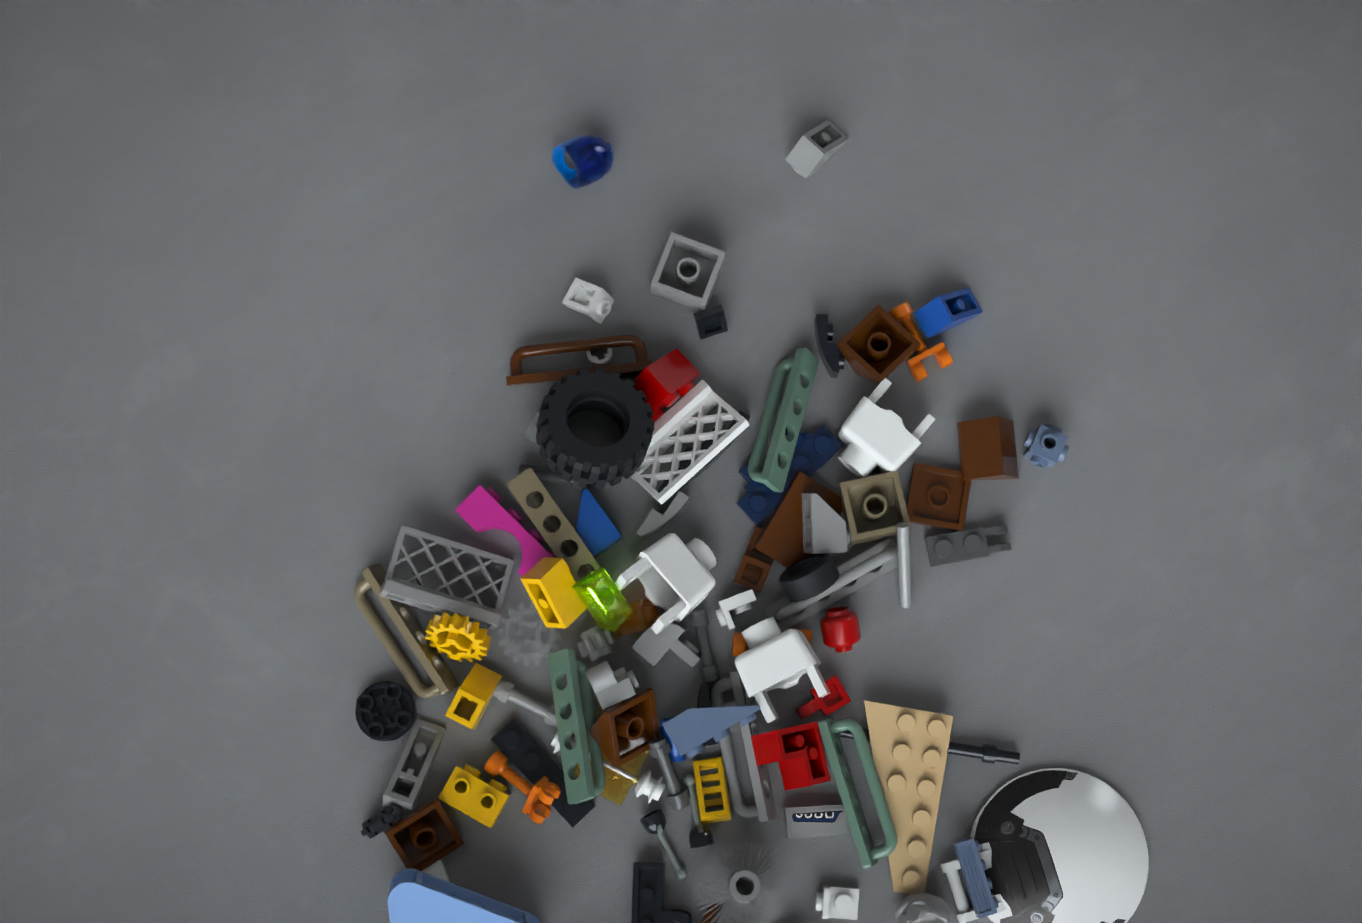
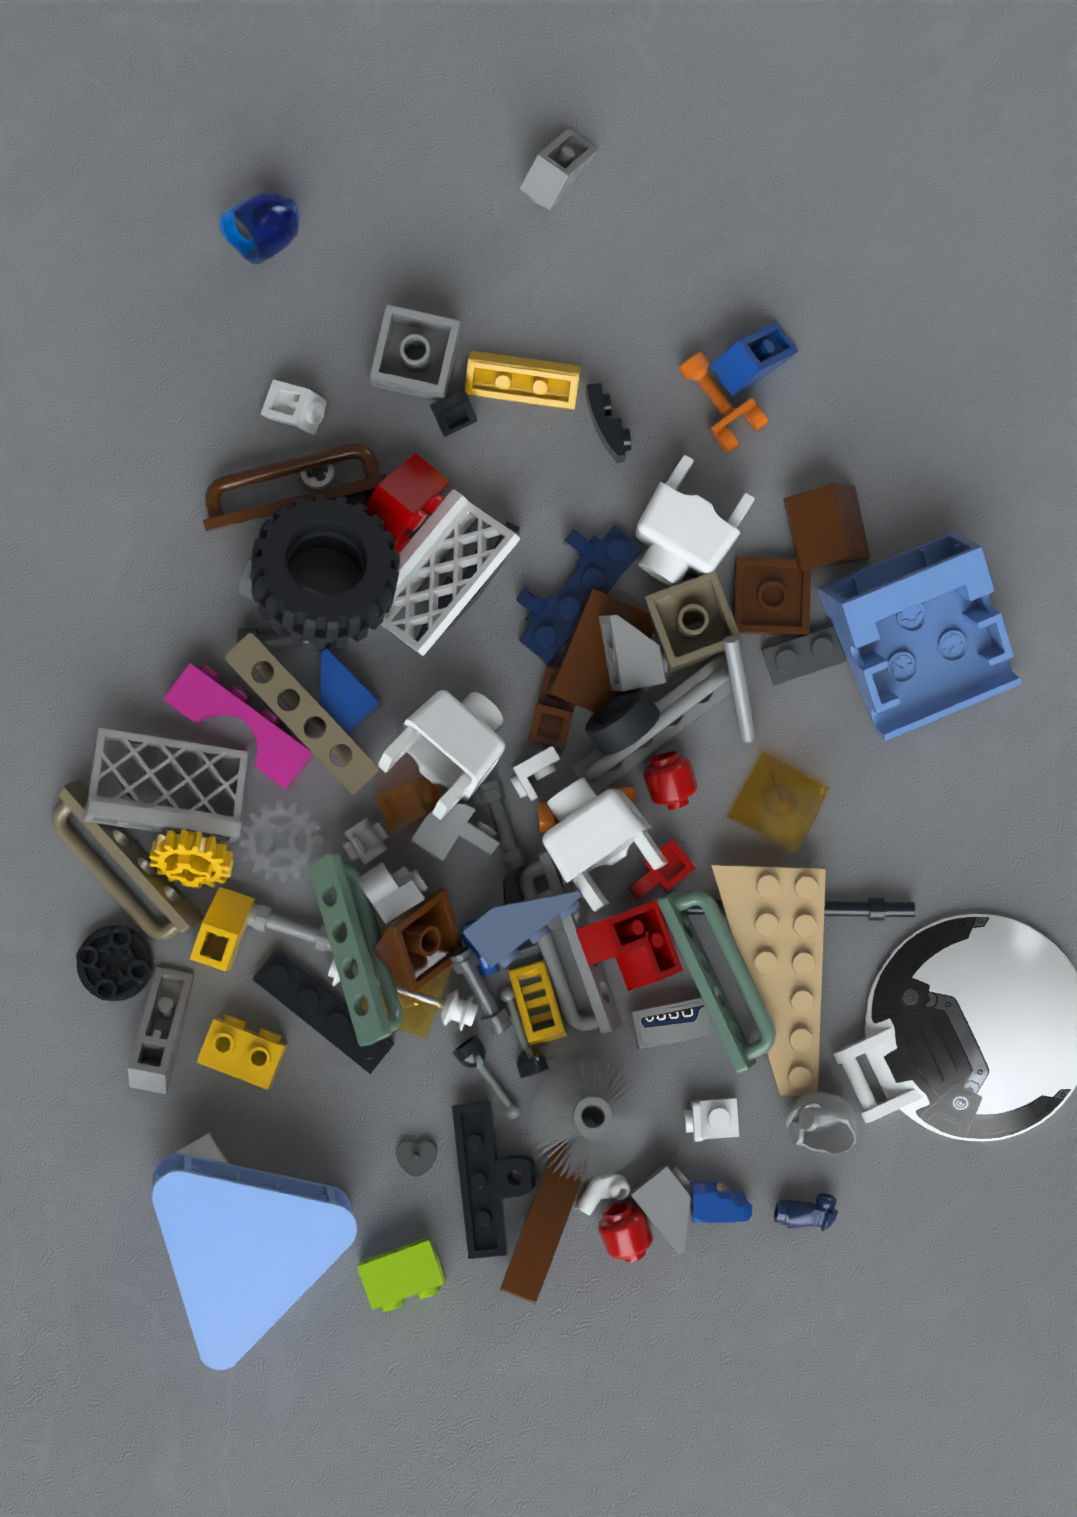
camera: 10 degrees left, 5 degrees up
(382, 821) = (131, 1100): black axle -> none
(424, 836) = (186, 1111): reddish brown slope -> none
(498, 765) = (266, 1010): orange bar -> none
(553, 593) = (304, 786): yellow brick -> none
(598, 899) = (416, 1158): none -> dark grey piece
(603, 599) = (367, 786): clear neon green slope -> none
(657, 521) = (421, 677): light grey slope -> none
(766, 304) = (522, 379): none -> yellow slope
(775, 475) = (558, 598): sand green piece -> none
(877, 345) = (669, 414): reddish brown slope -> none
(922, 659) = (778, 803): none -> clear yellow slope
(975, 877) = (878, 1064): sand blue piece -> none
(1039, 453) = (890, 522): sand blue brick -> none
(1052, 542) = (921, 633): none -> medium blue panel

